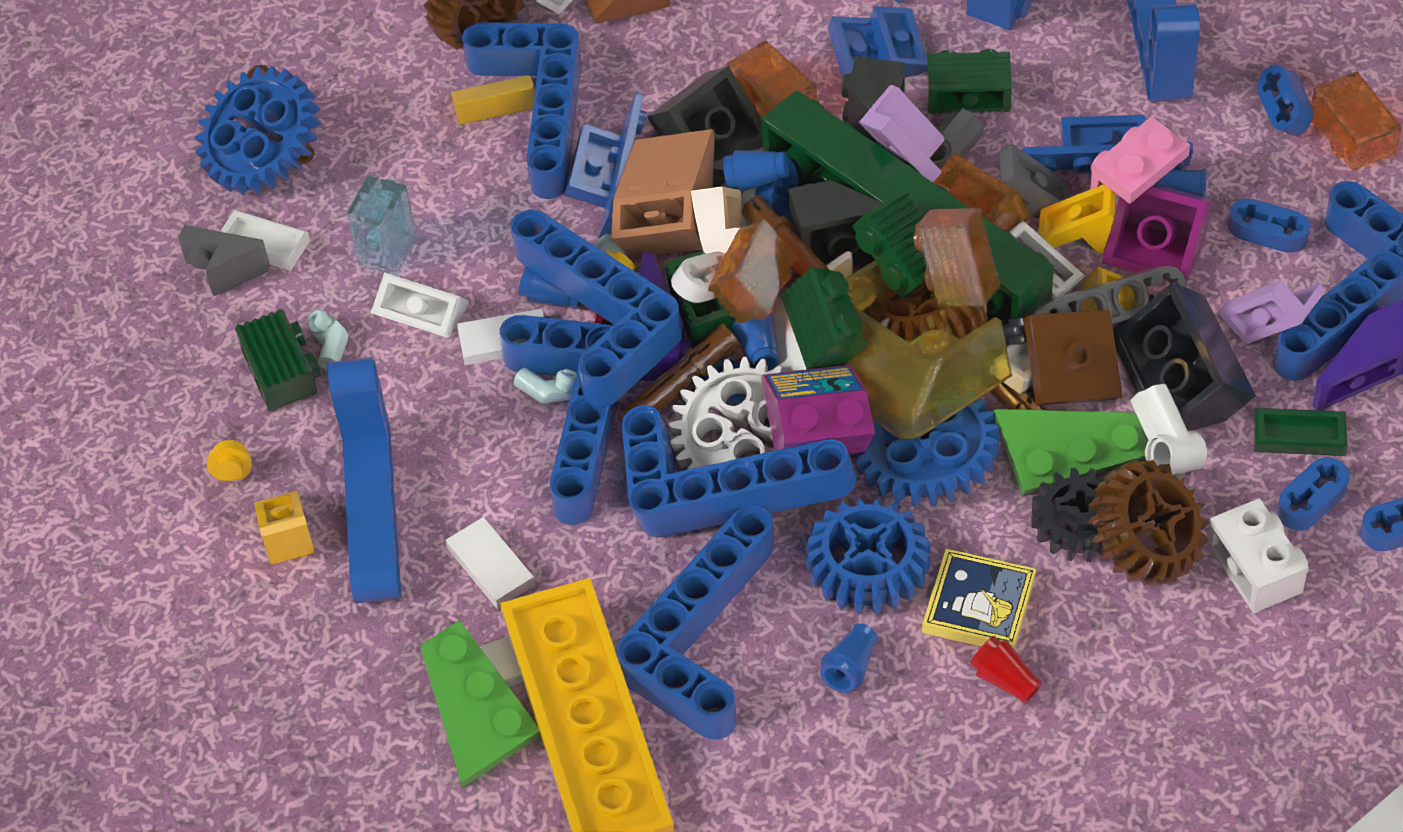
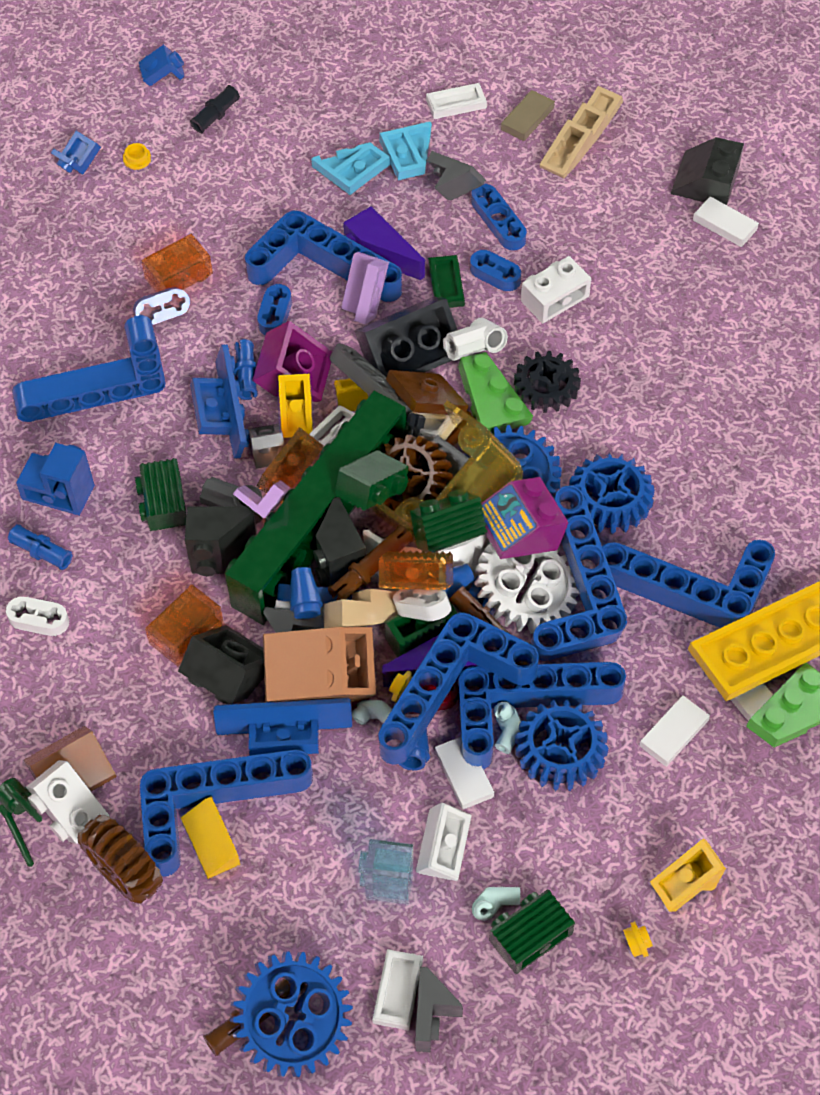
camera: 105 degrees left, 5 degrees up
(367, 478) = (604, 834): blue beam -> none
(477, 442) = (579, 729): none -> blue gear
(848, 660) = (693, 492): blue cone -> none
(886, 35) = (124, 566): blue slope -> none
(957, 257) = (395, 431): clear orange brick -> none
(978, 599) = (624, 431): tile -> none
(1004, 668) = (674, 410): red cone -> none
(1139, 160) = (259, 361): bright pink bracket -> none
(1148, 494) = (556, 335): reddish brown gear -> none

